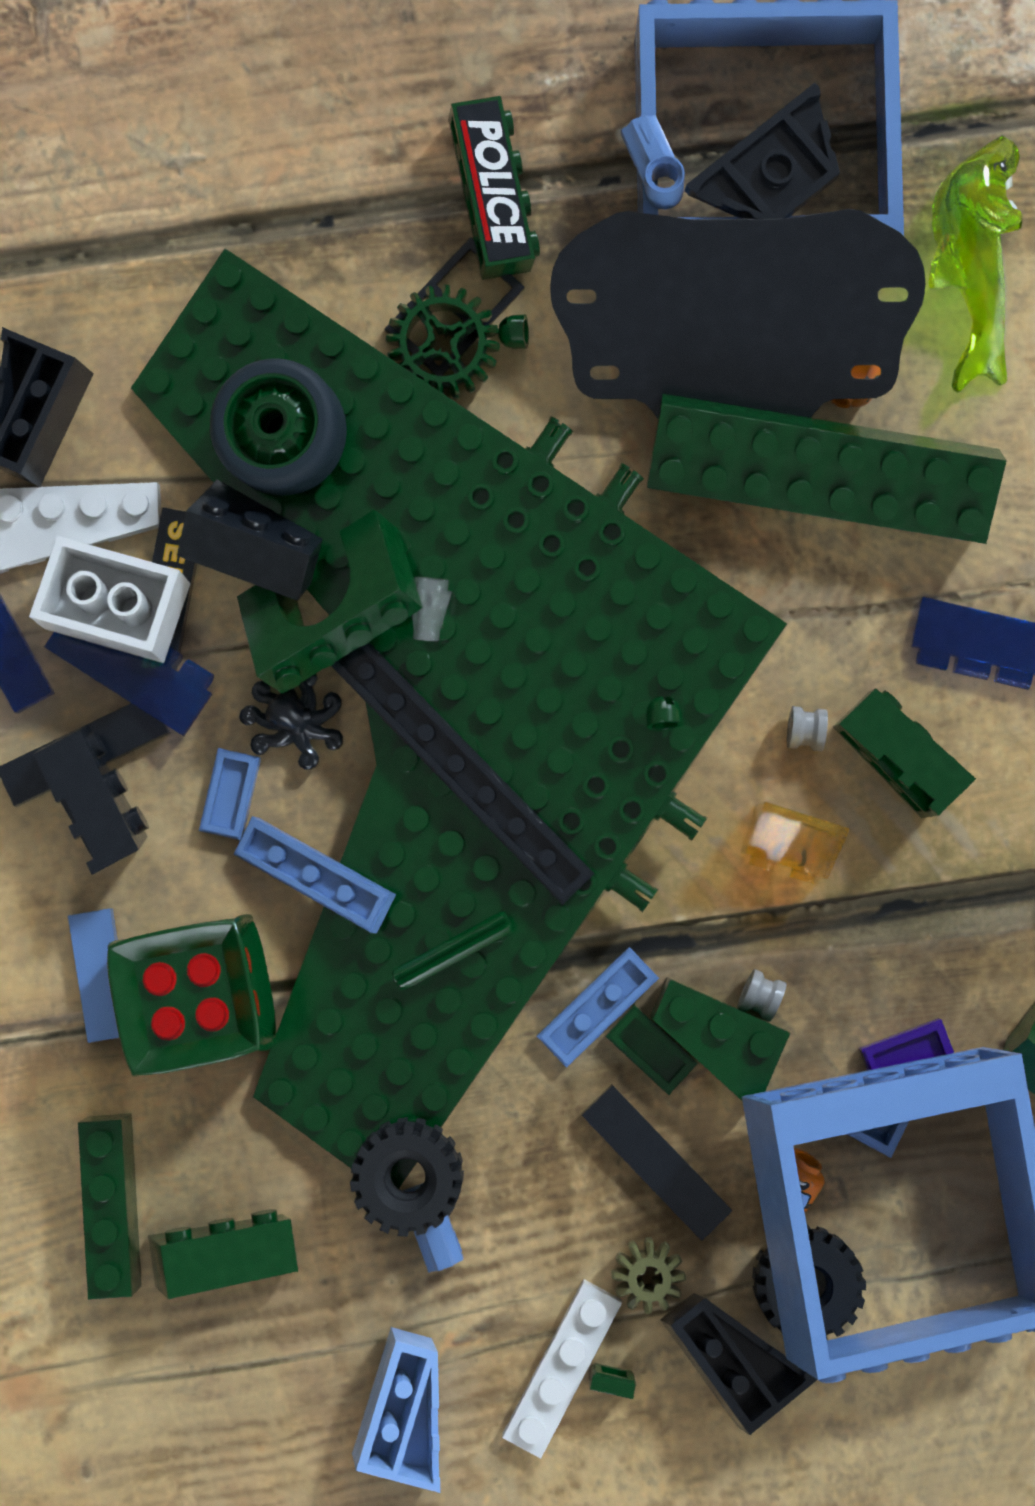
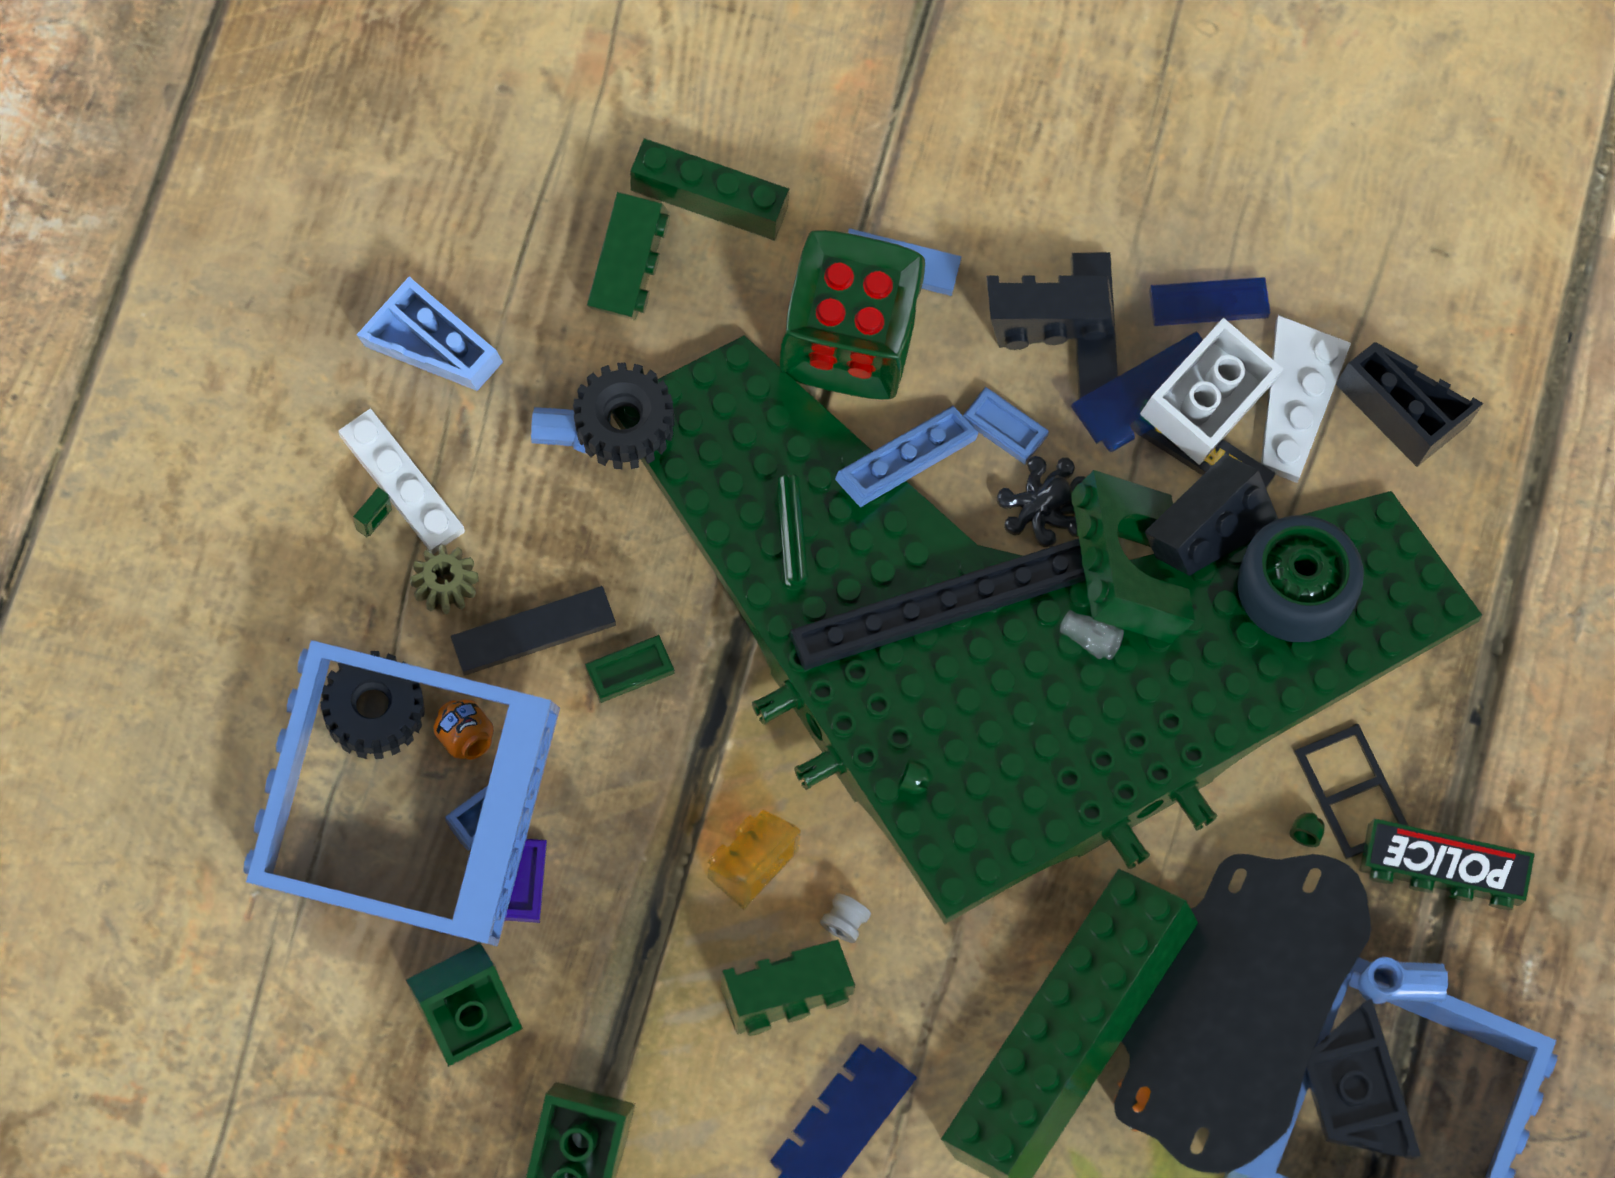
camera: 105 degrees right, 15 degrees down
(457, 331) = (1337, 755): dark green gear -> none
(597, 1007) = (687, 641): medium blue tile -> none
(722, 1038) = (615, 723): dark green wedge -> none
(736, 1364) = (343, 609): black wedge -> none
(762, 995) = (632, 775): light grey wheel -> none

